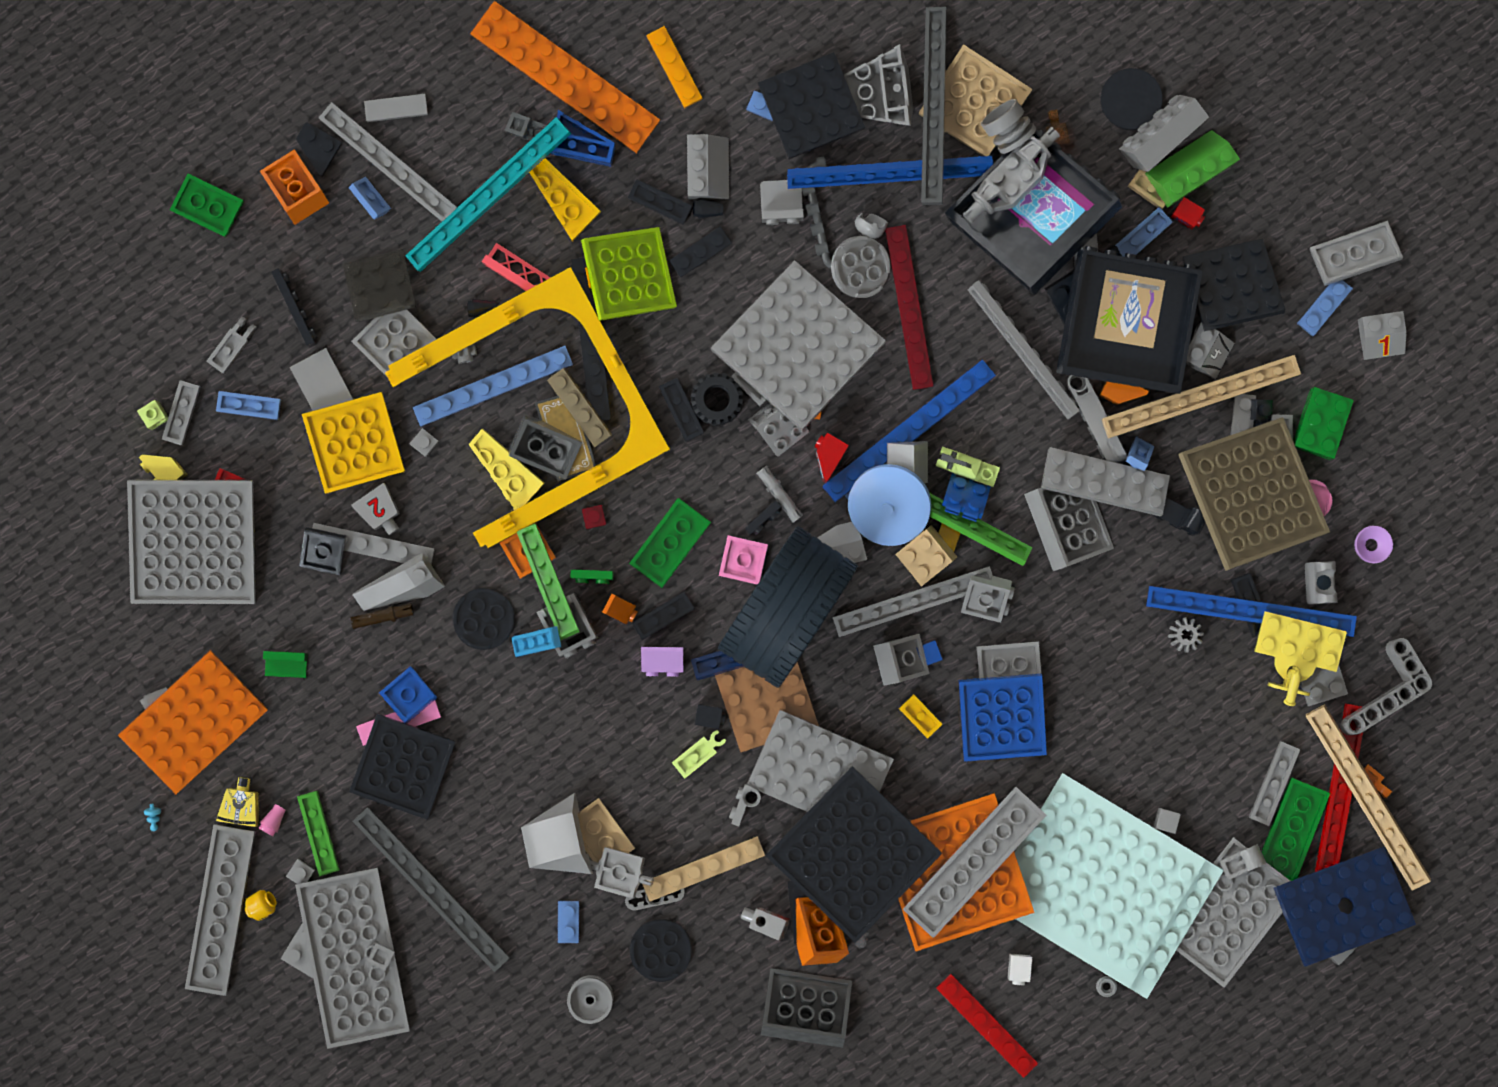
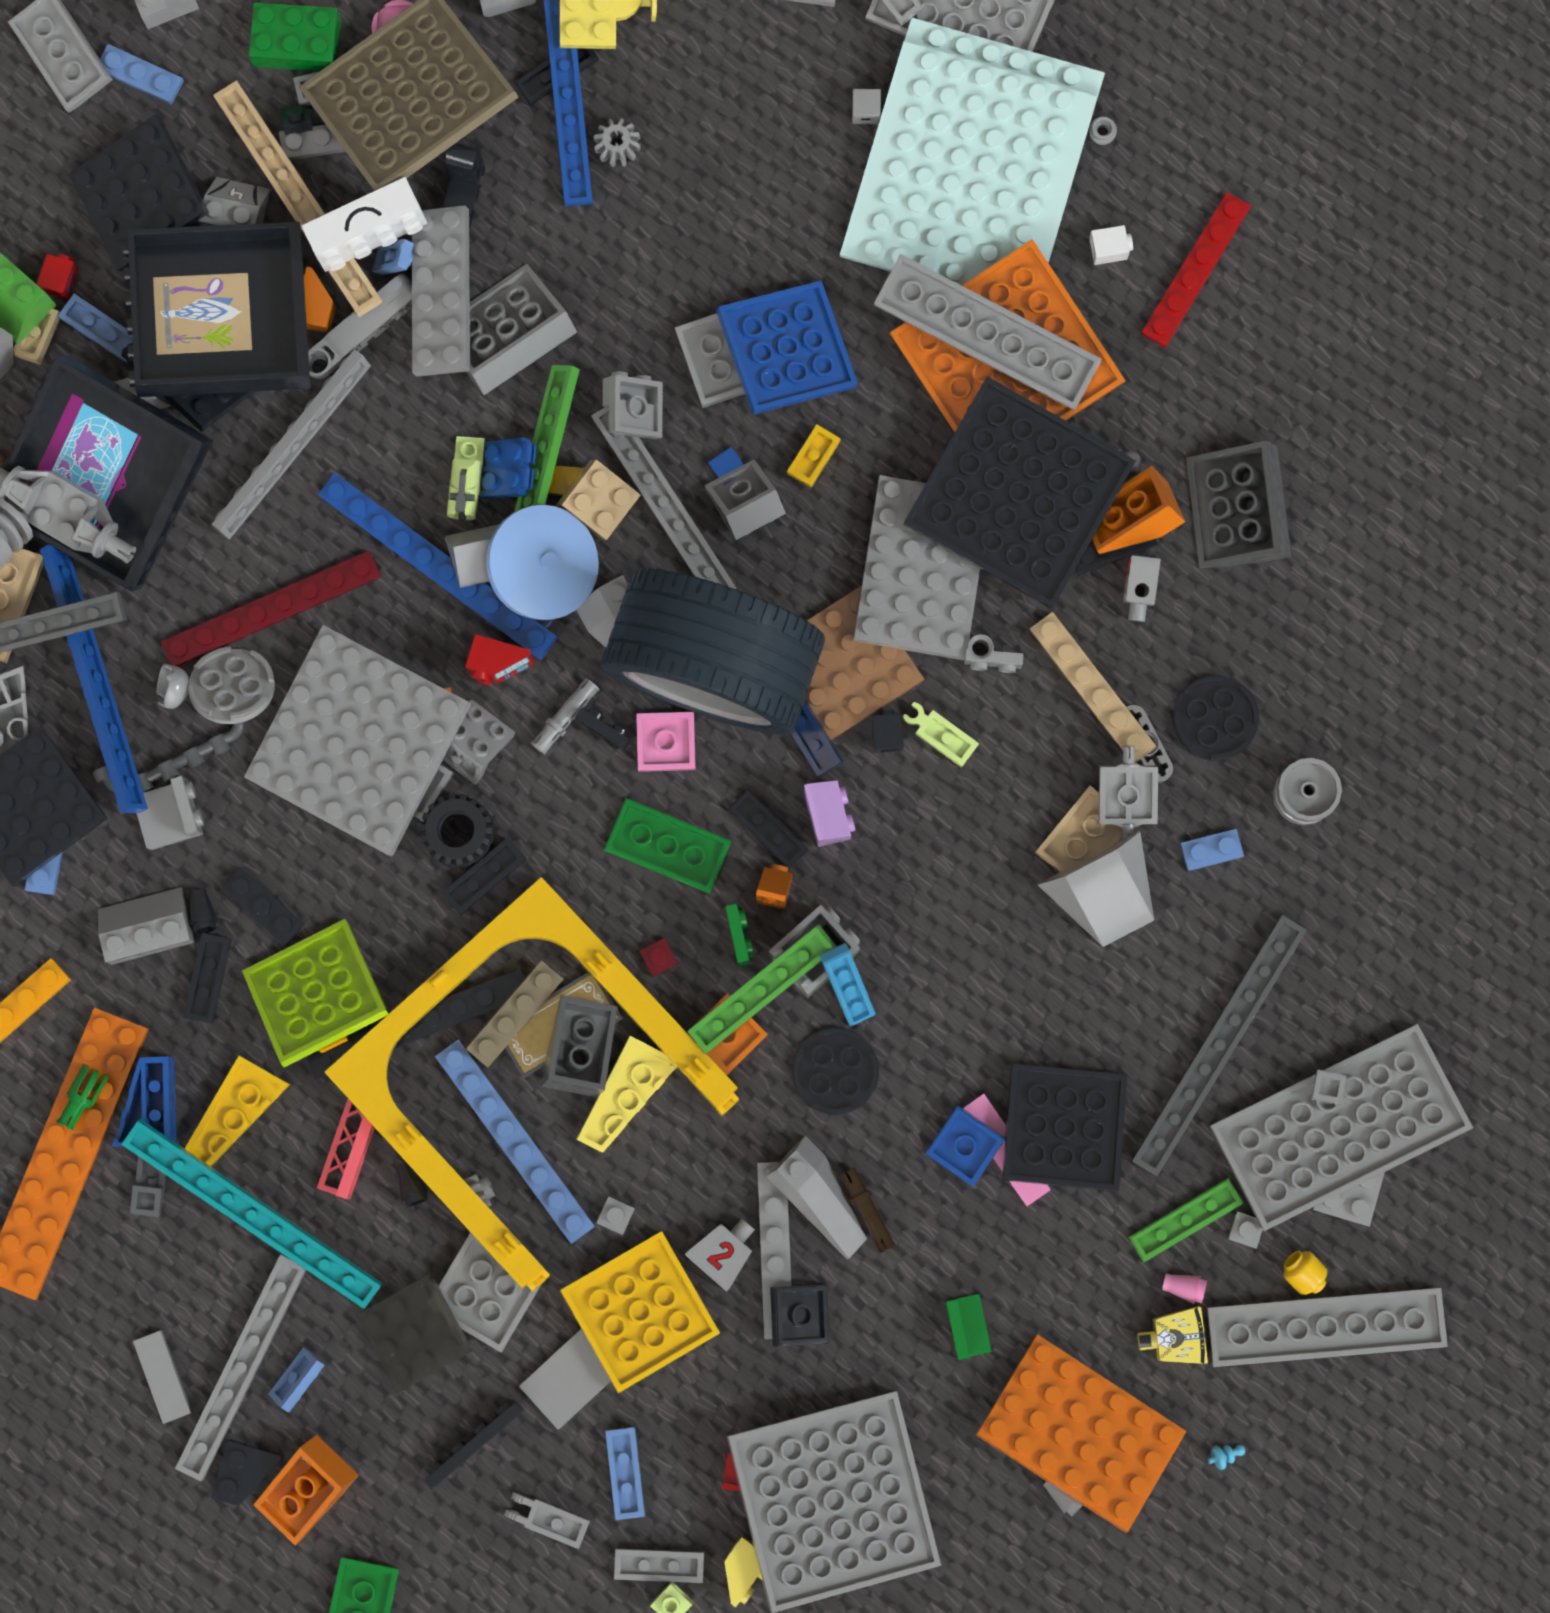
camera: 100 degrees left, 5 degrees down
(599, 97) = (79, 1099): none -> green arm
(1162, 439) = (365, 225): none -> white brick

